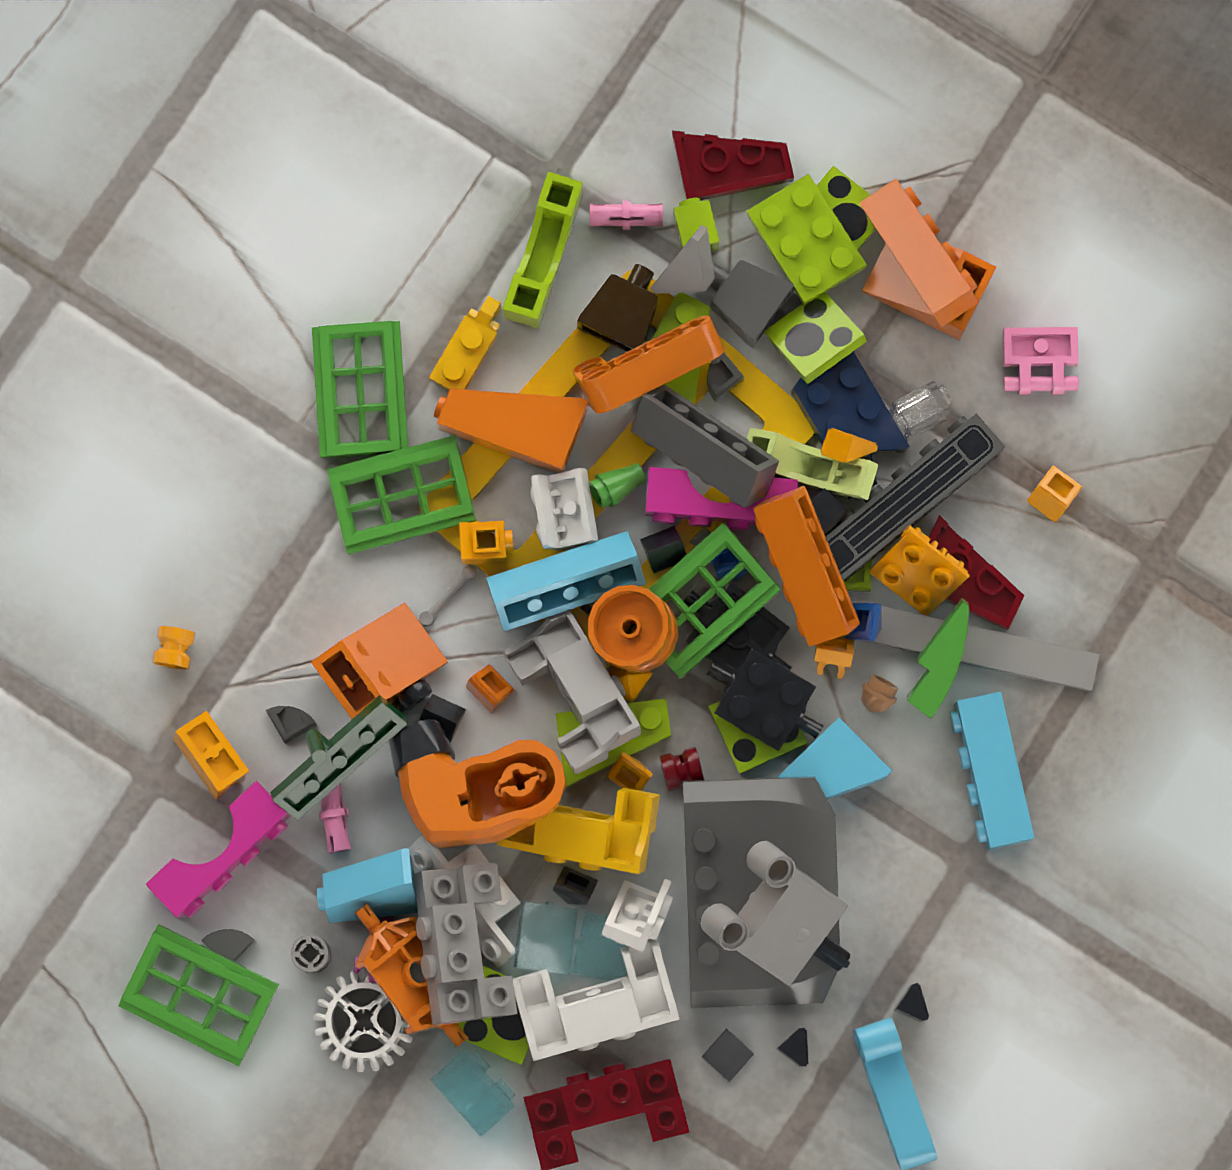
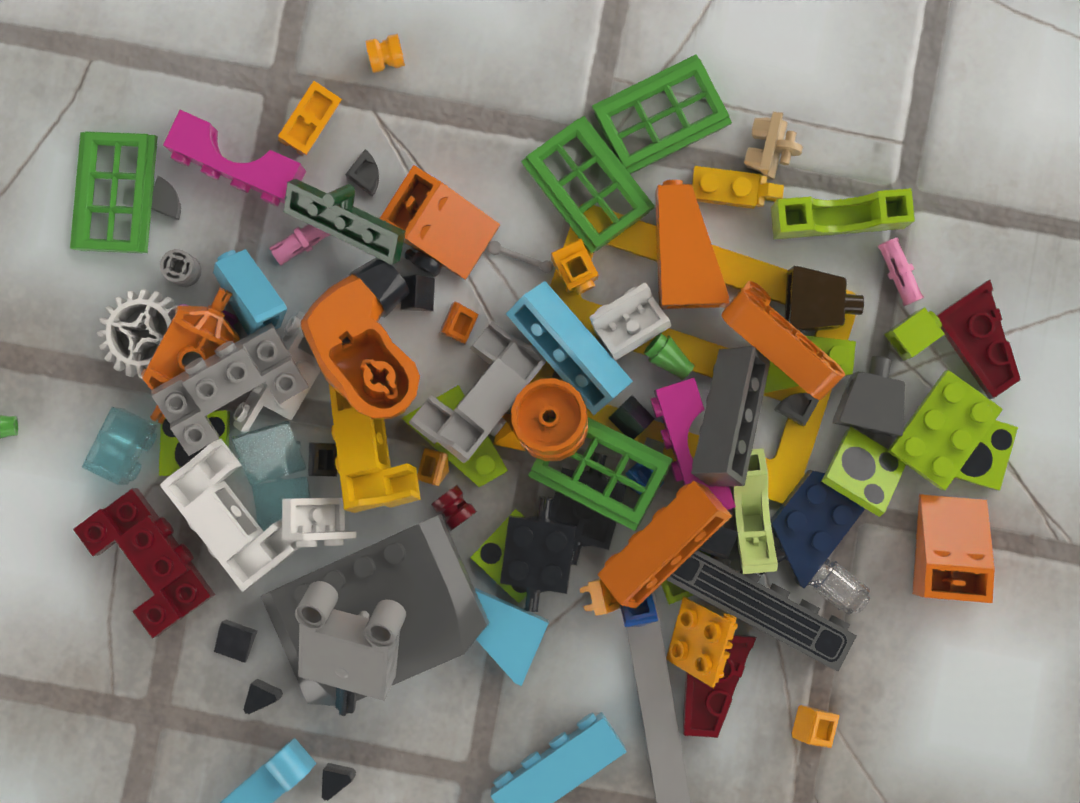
camera: 65 degrees right, 5 degrees up
(427, 282) = (772, 131): none -> tan hips
(690, 269) = (879, 342): light grey slope -> none
(845, 446) = (781, 536): light orange slope -> none
(878, 694) = (583, 647): medium nougat plate -> none
(919, 252) = (976, 533): orange brick -> none
(941, 660) = (632, 690): bright green slope -> none
(1040, 348) = (935, 665): bright pink plate -> none

